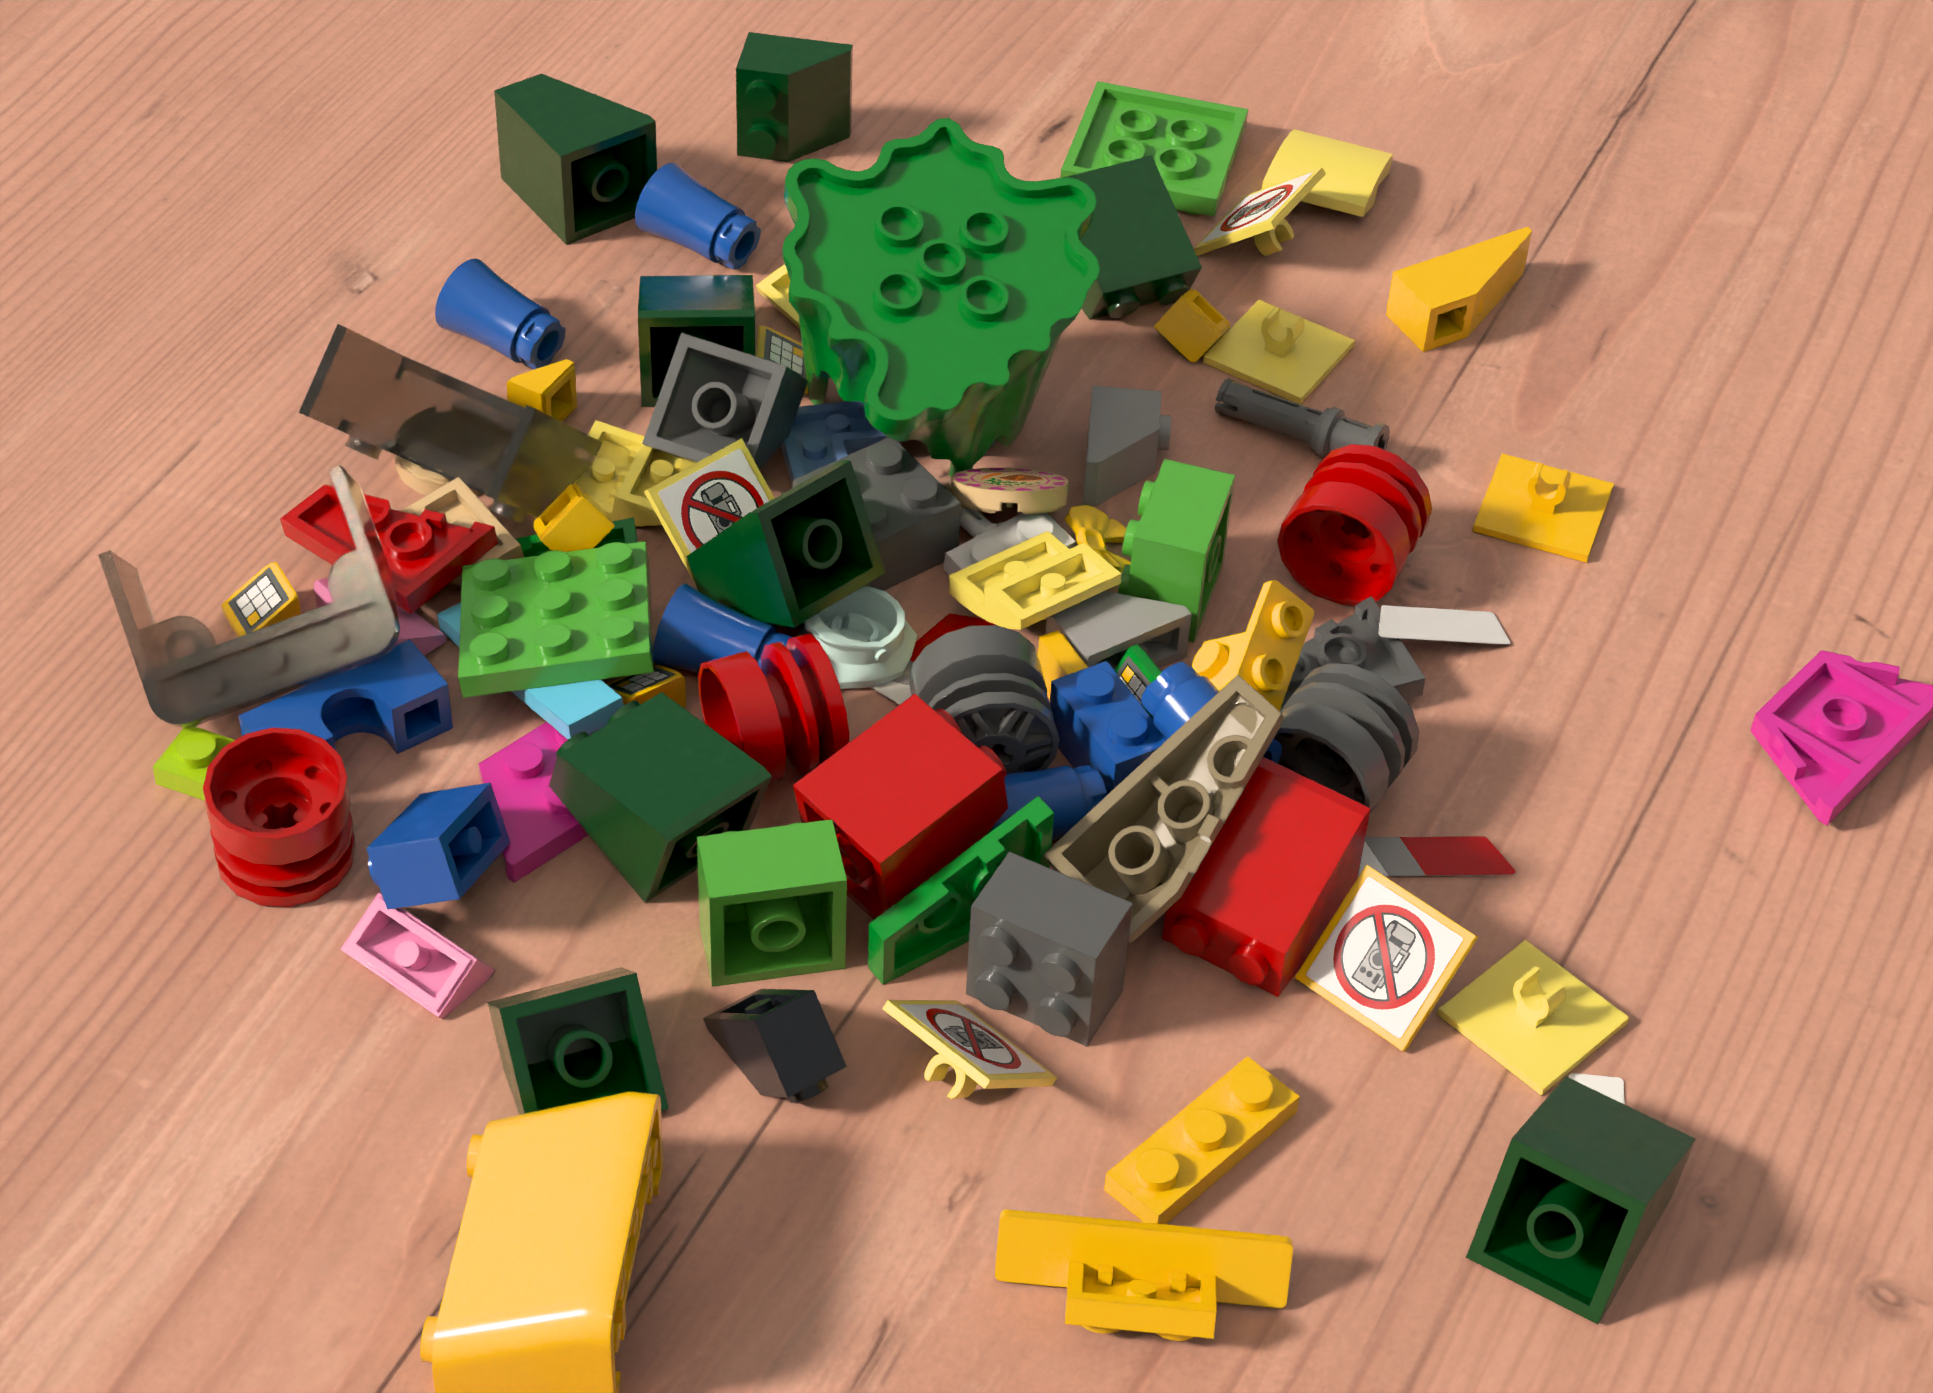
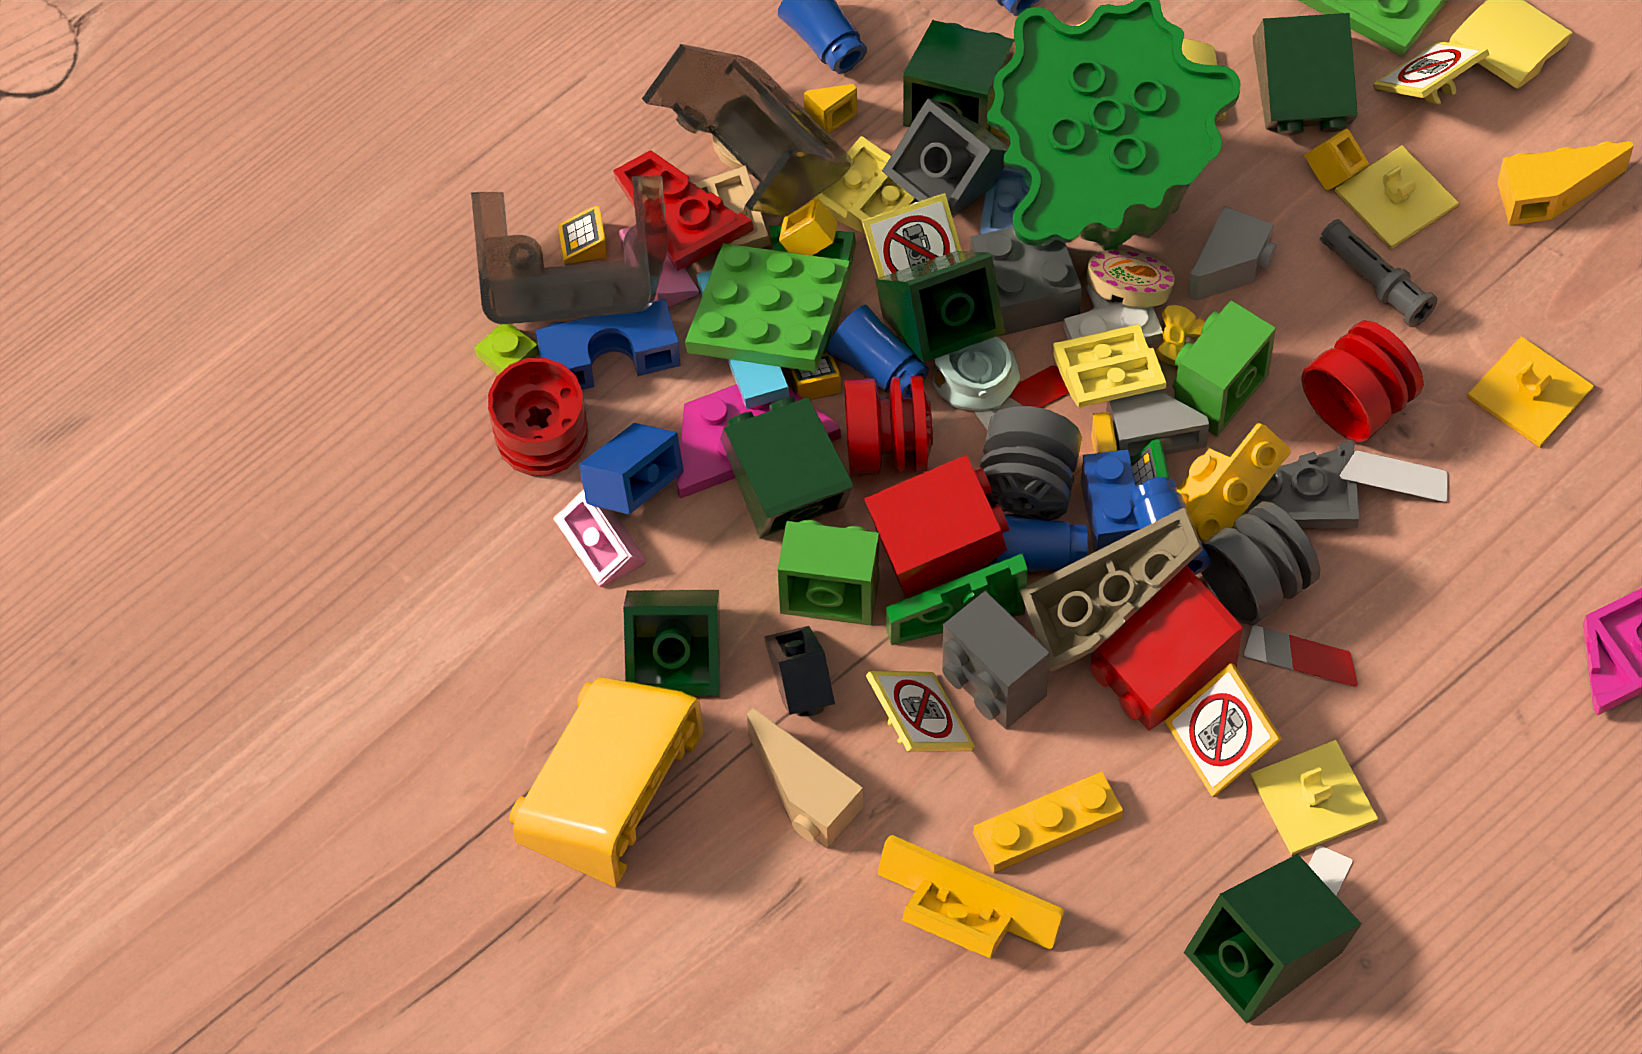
camera: 25 degrees right, 15 degrees up
(846, 1184) = (813, 791): none -> tan slope

